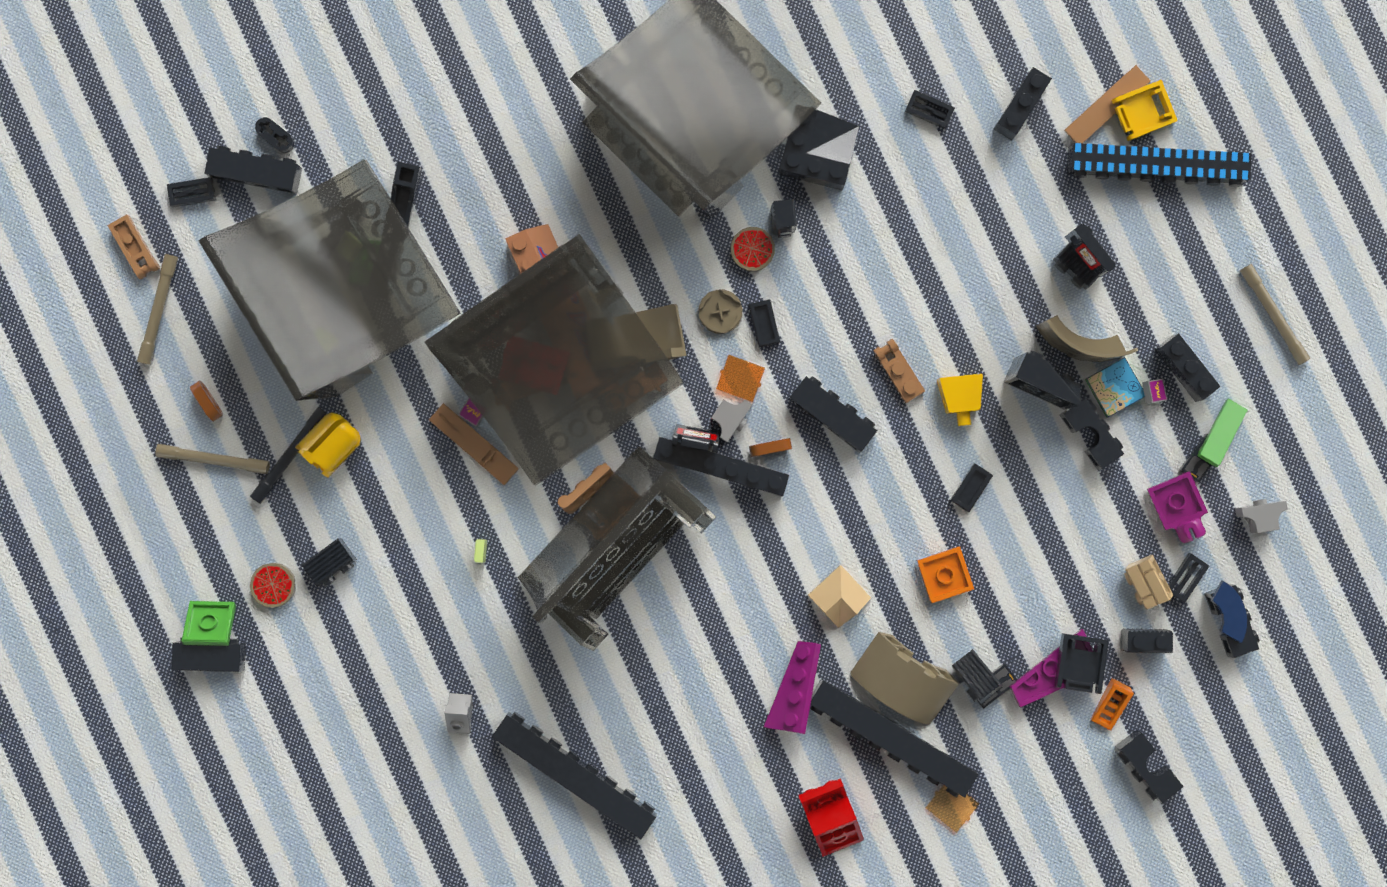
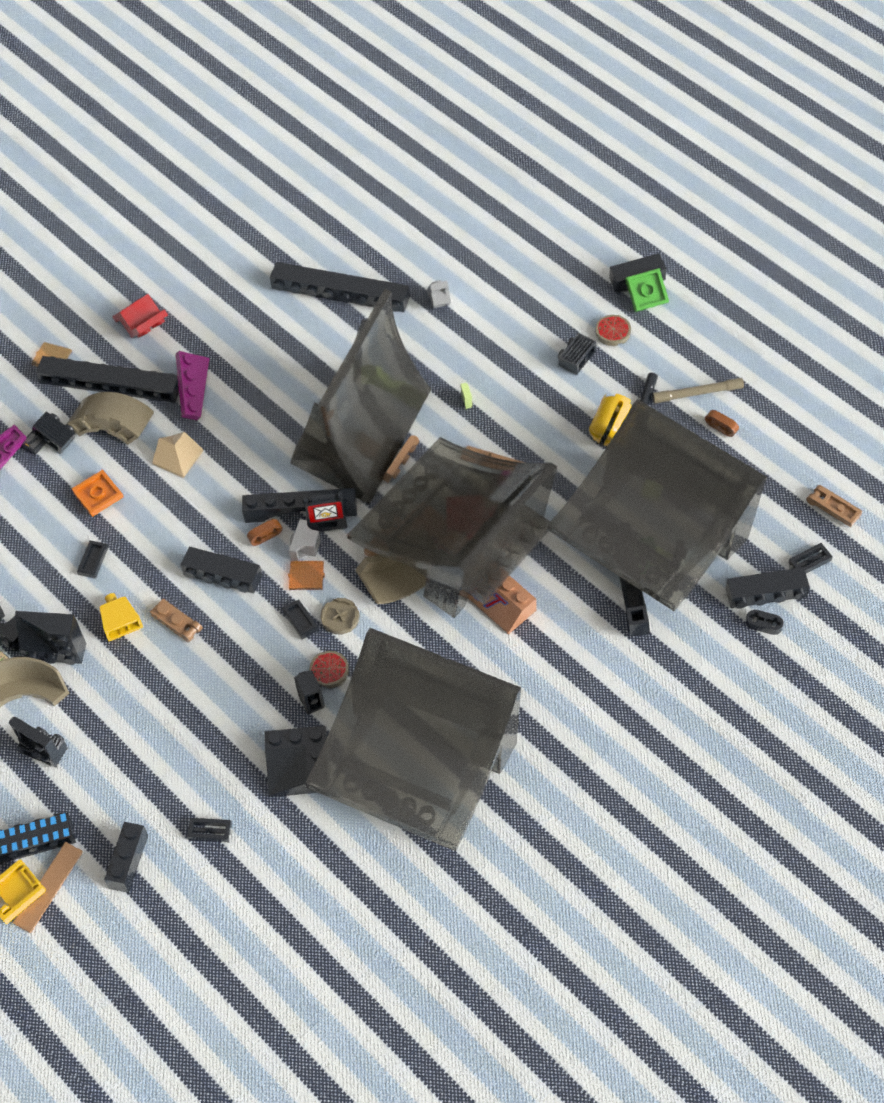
camera: 165 degrees right, 30 degrees down
(166, 274) = (798, 496): dark tan piece -> none

